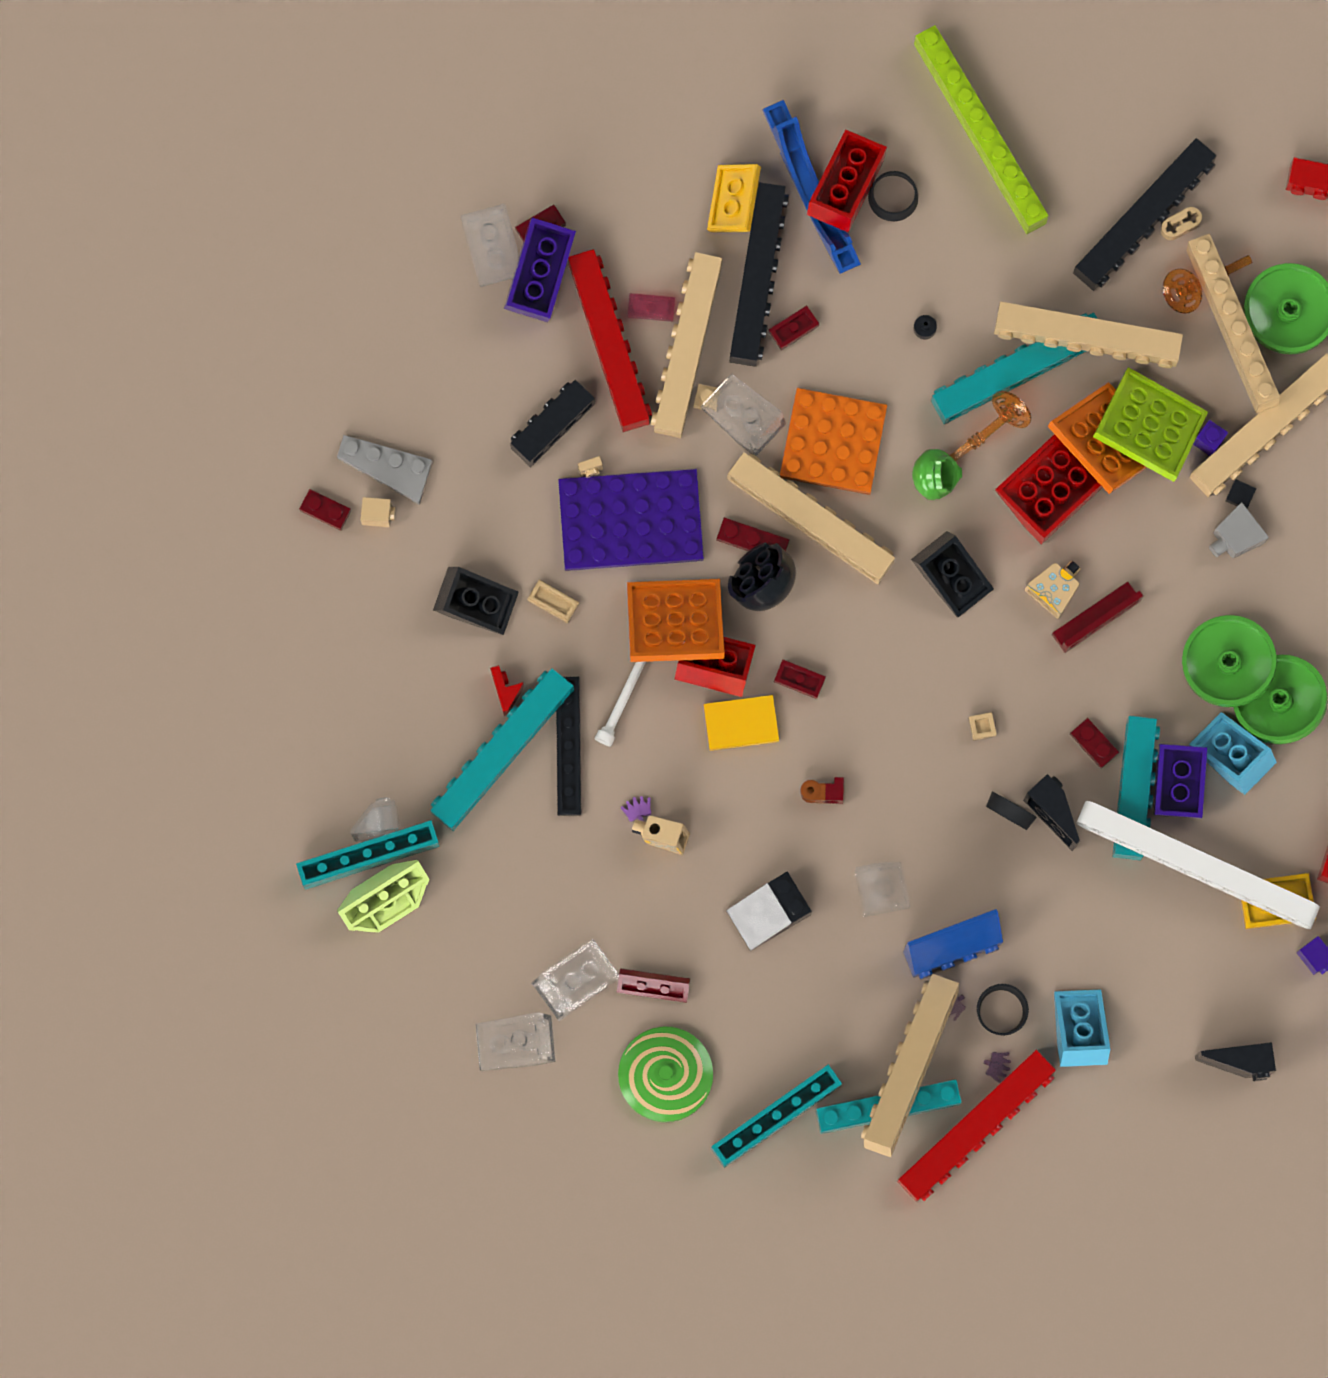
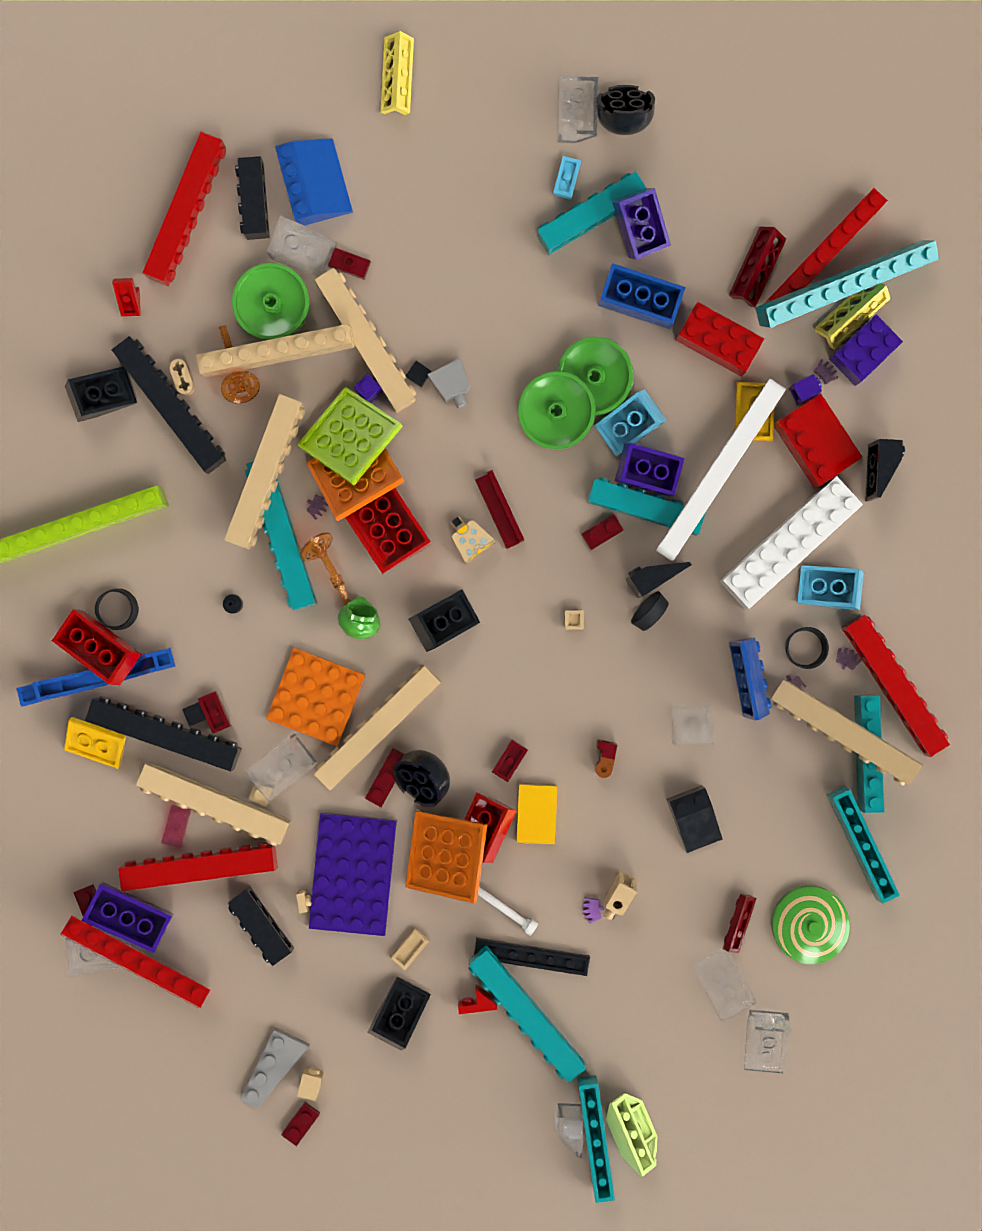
camera: 80 degrees left, 10 degrees up
(490, 286) = (135, 962): none -> red brick
(786, 305) = (194, 714): none -> black tile
(1059, 402) = (316, 506): none -> clear purple piece
(1125, 968) = (791, 543): none -> white brick
(1142, 134) = (100, 393): none -> black slope
(1257, 983) = (817, 441): none -> red slope
(1262, 145) = (127, 296): none -> red slope

